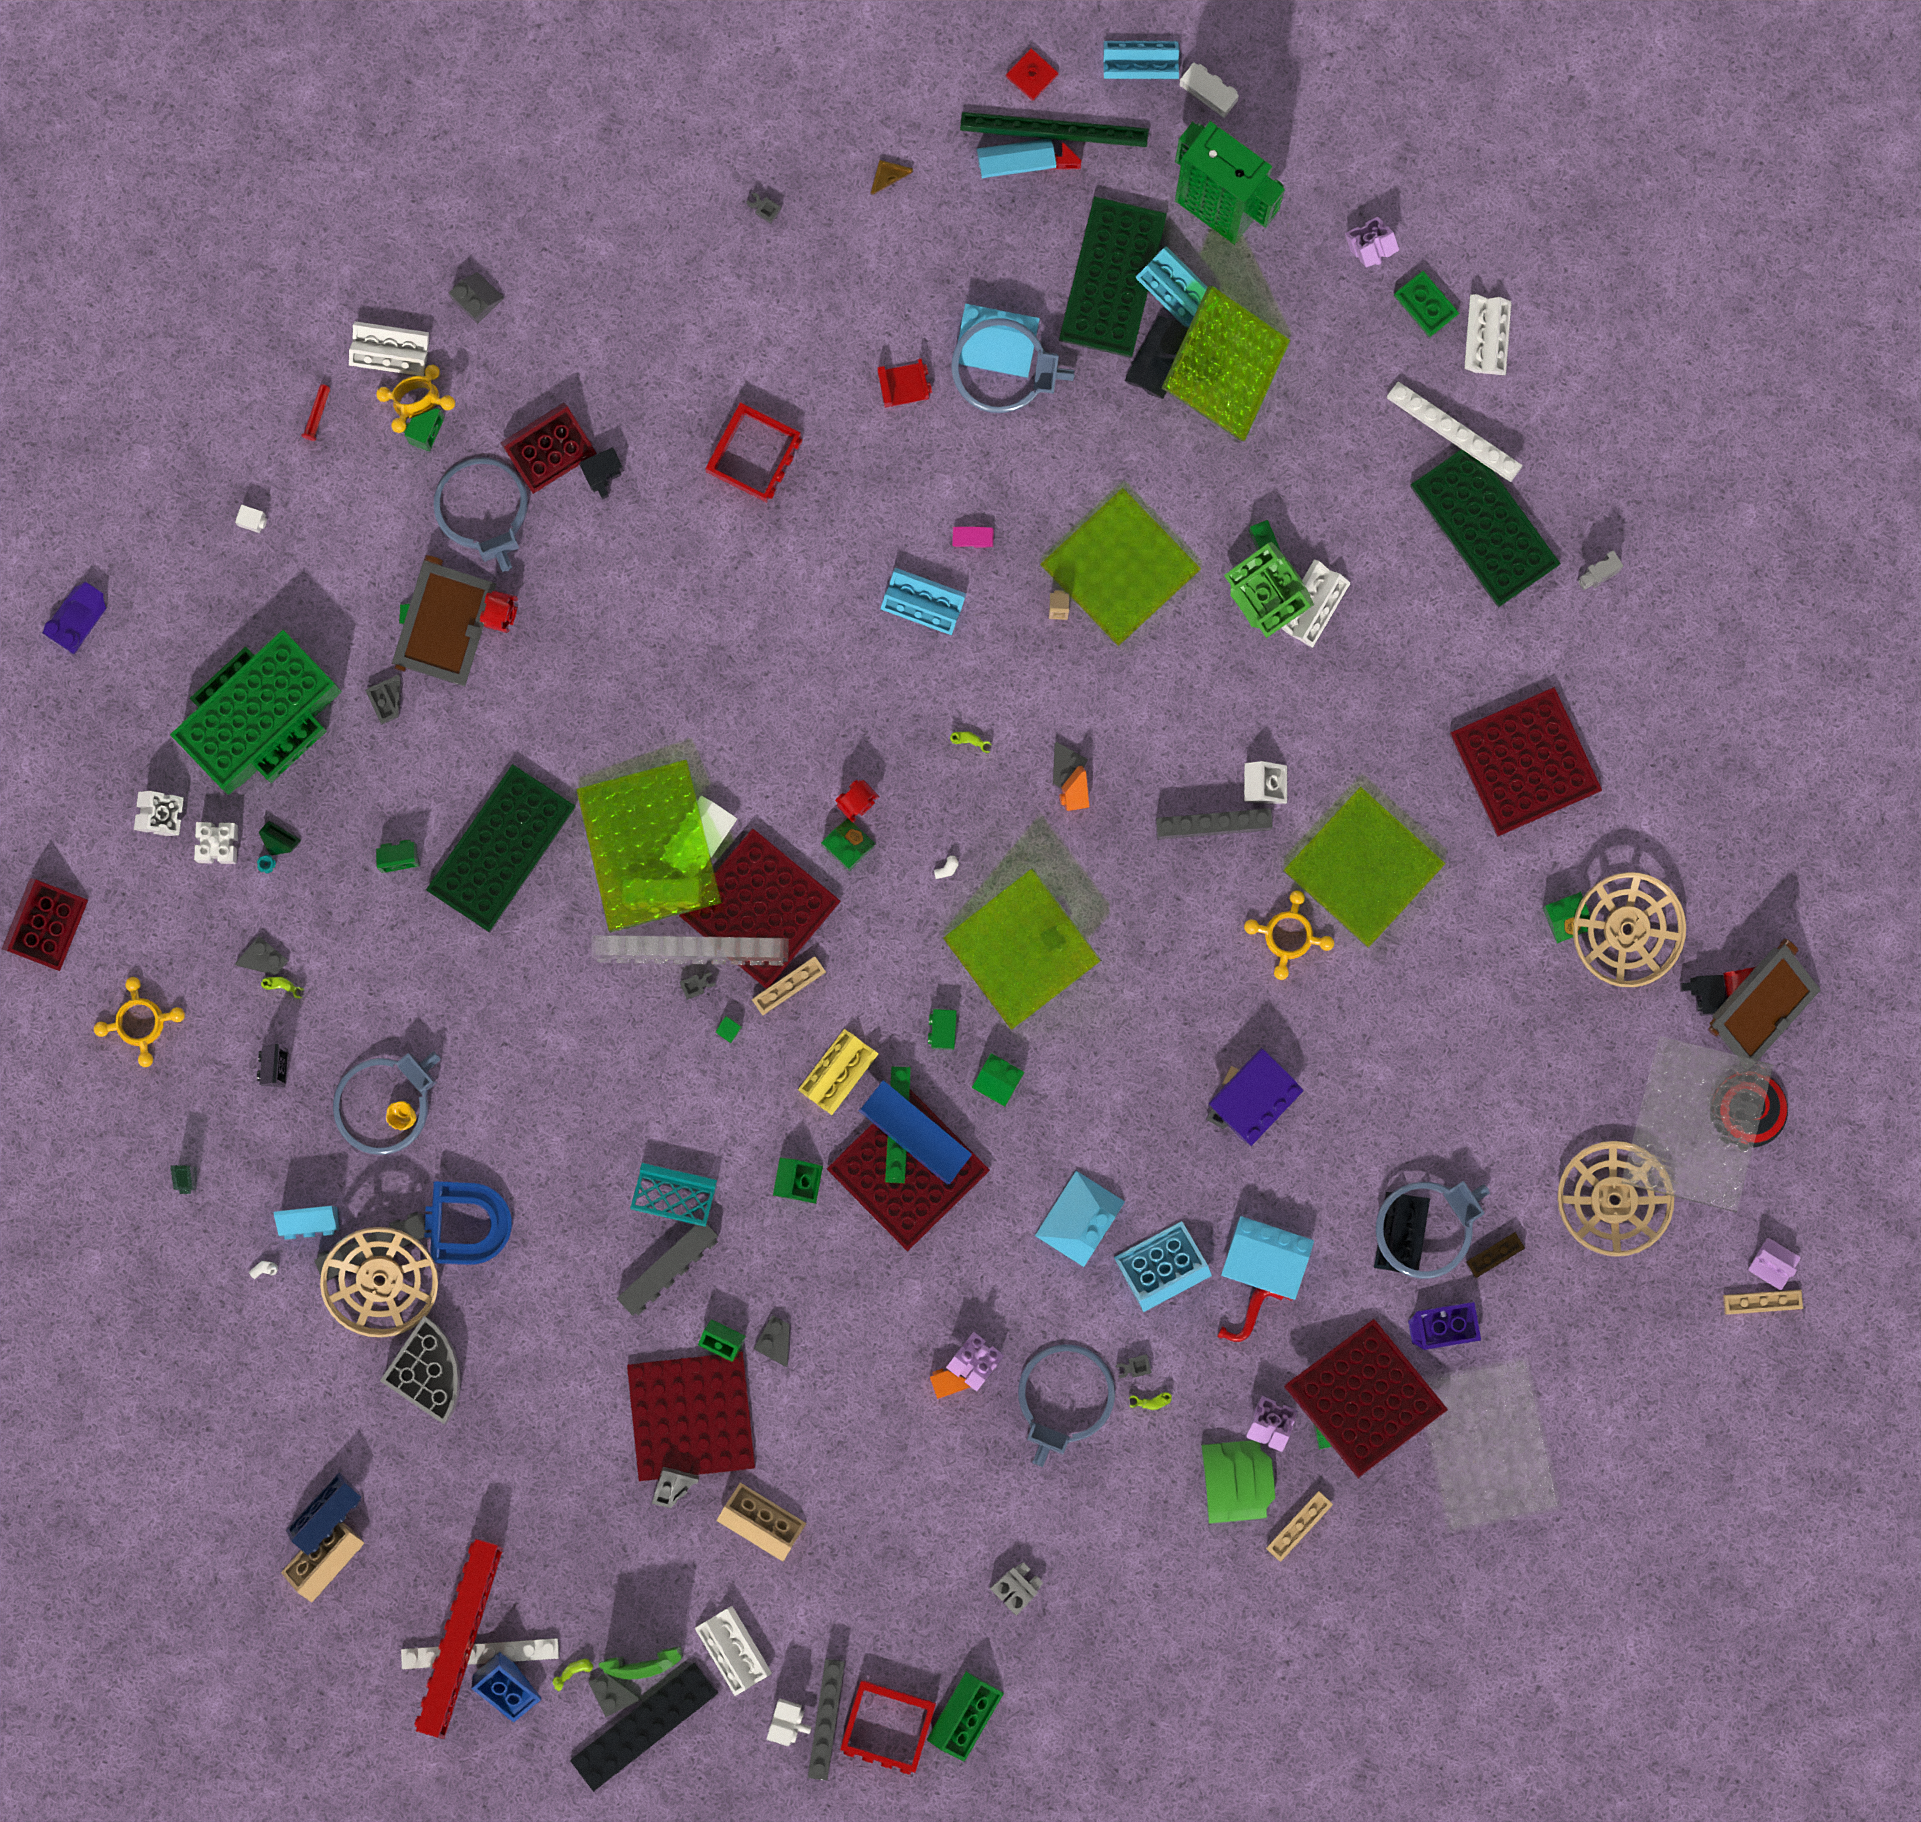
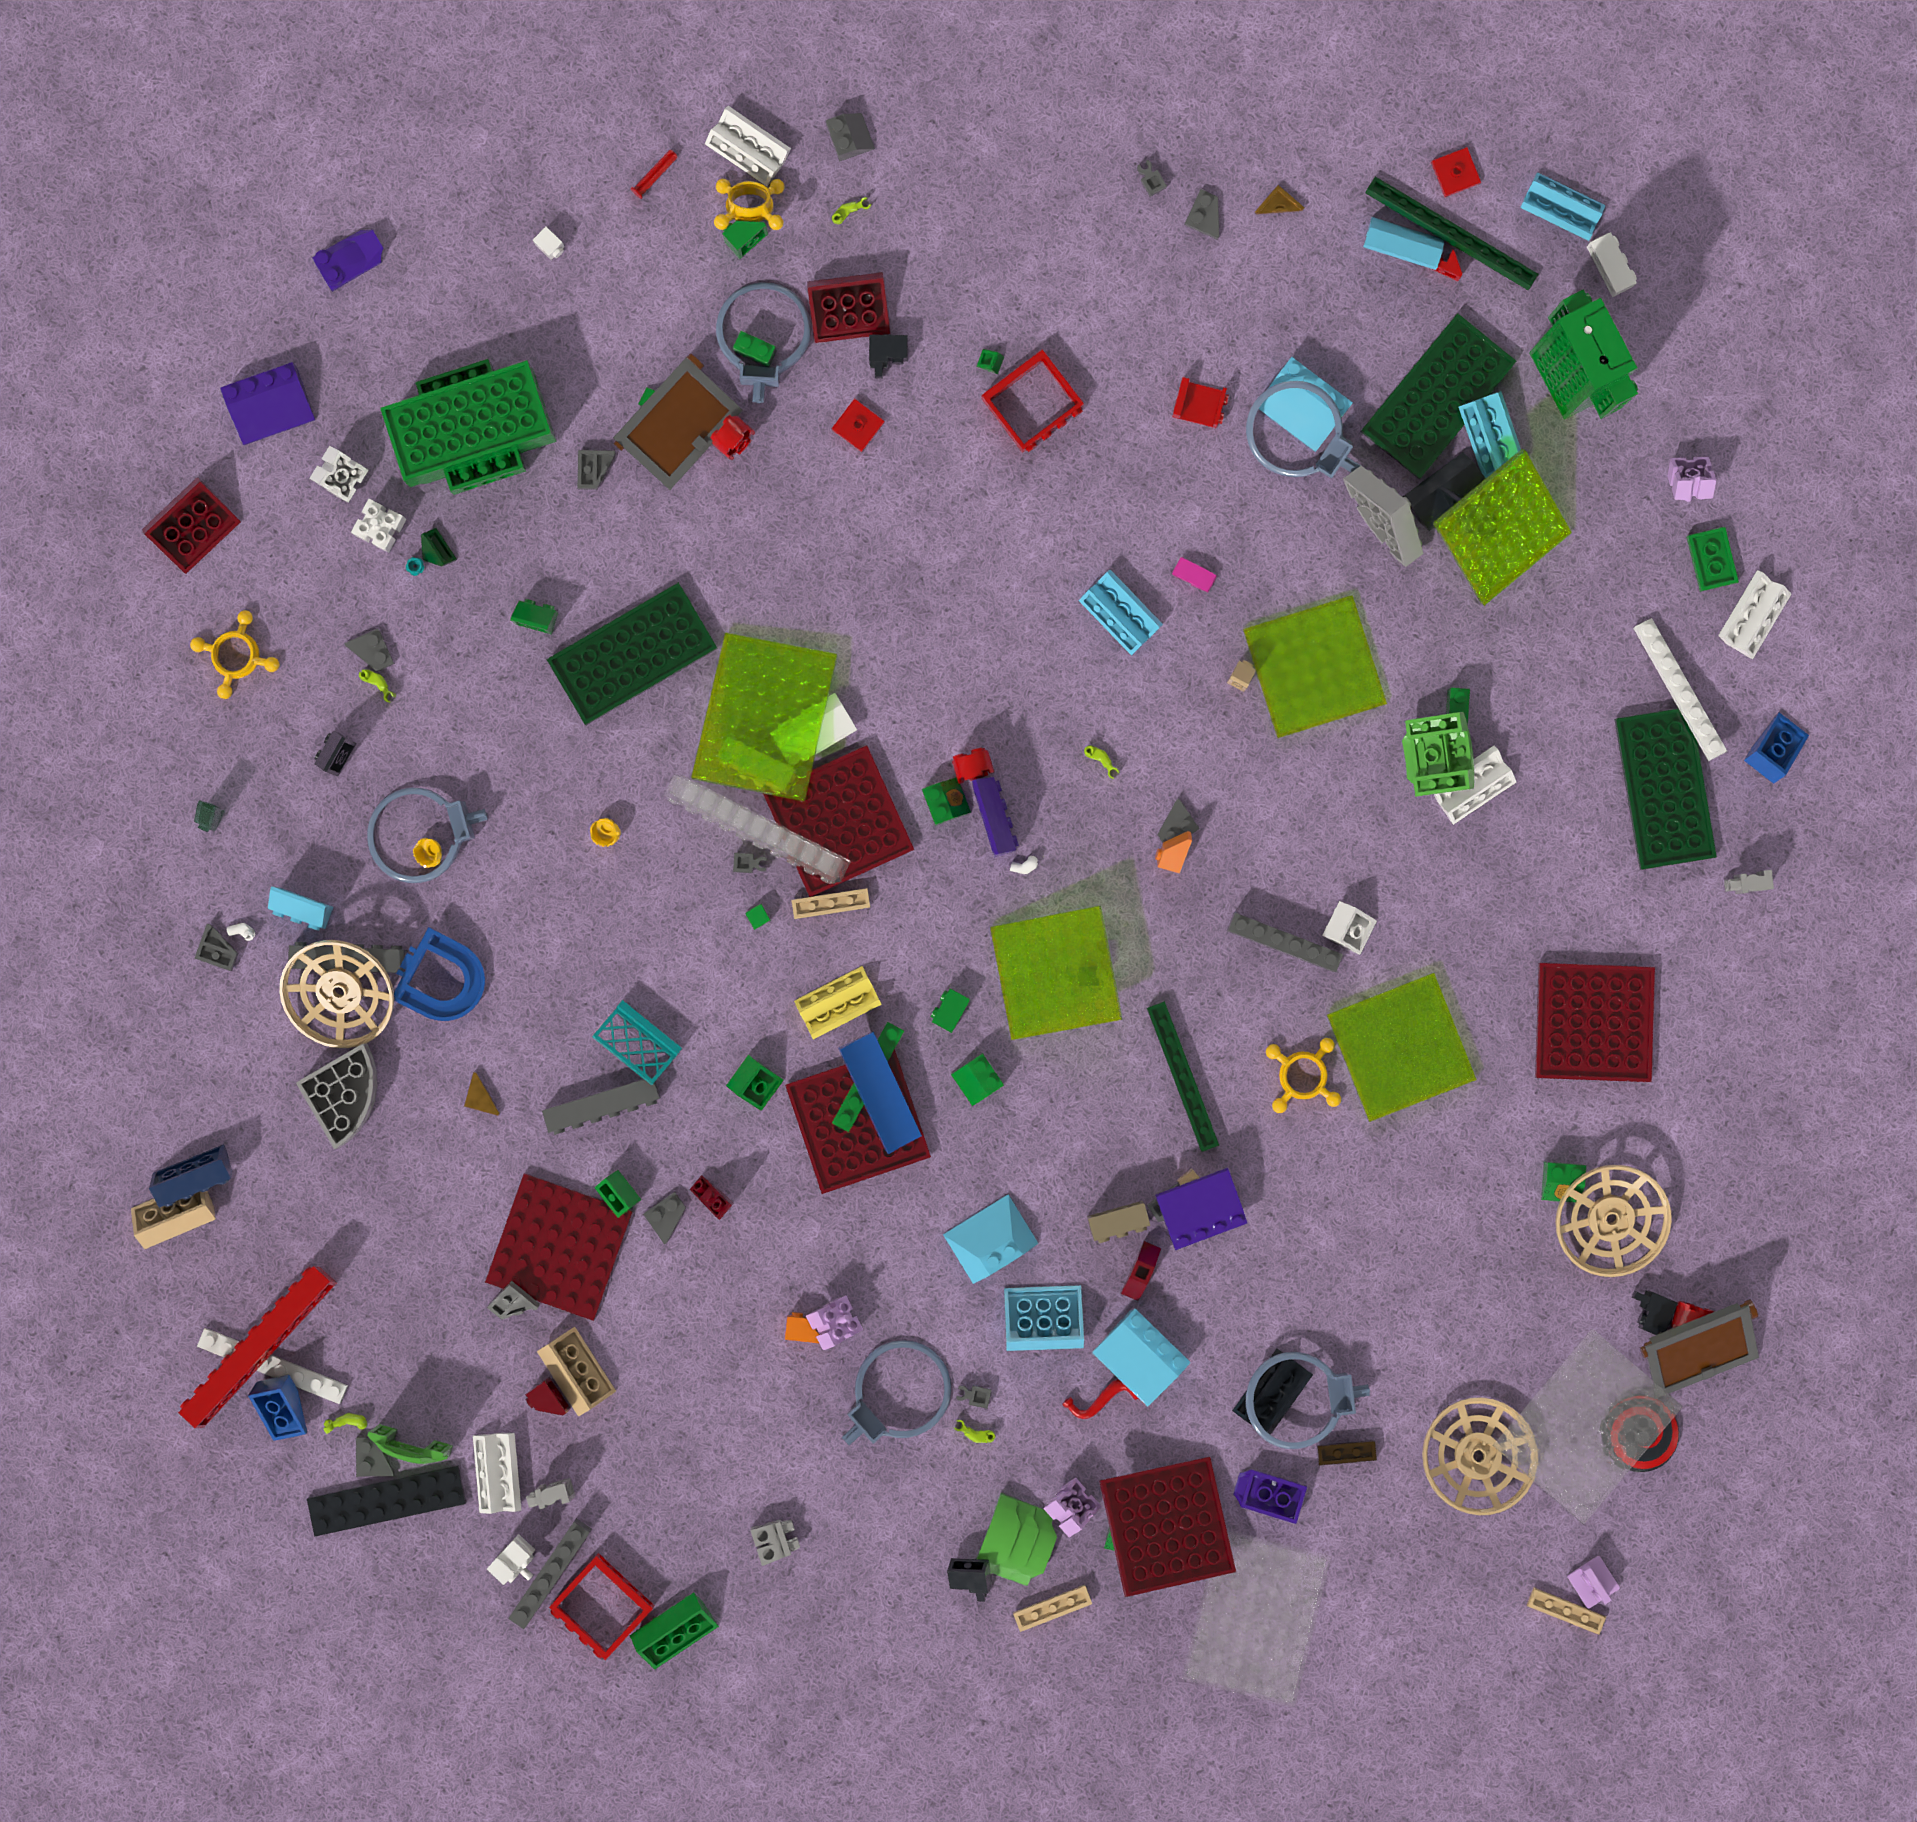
camera: 25 degrees right, 5 degrees up
(63, 781) = (268, 403): none -> dark purple slope
(248, 1297) = (216, 950): none -> dark grey wing
(481, 524) = (754, 349): none -> green brick
(503, 363) = (845, 209): none -> lime arm
(553, 1019) = (605, 832): none -> yellow hair
(553, 1316) = (479, 1098): none -> pearl gold tile
(607, 548) = (858, 425): none -> red plate
(698, 435) = (990, 361): none -> green slope
(746, 1558) = (547, 1398): none -> dark red slope
(792, 1644) = (549, 1494): none -> light grey hips
(808, 1302) = (711, 1197): none -> dark red slope
(827, 216) = (1205, 215): none -> dark grey wing
(897, 836) = (994, 816): none -> dark purple slope
(1117, 402) = (1385, 514): none -> light grey brick
(1181, 988) = (1182, 1076): none -> dark green plate
(1187, 1145) = (1118, 1221): none -> dark tan brick
(1210, 1531) = (971, 1576): none -> black hinge
(1230, 1181) = (1141, 1271): none -> dark red slope
(1565, 442) = (1776, 748): none -> blue slope

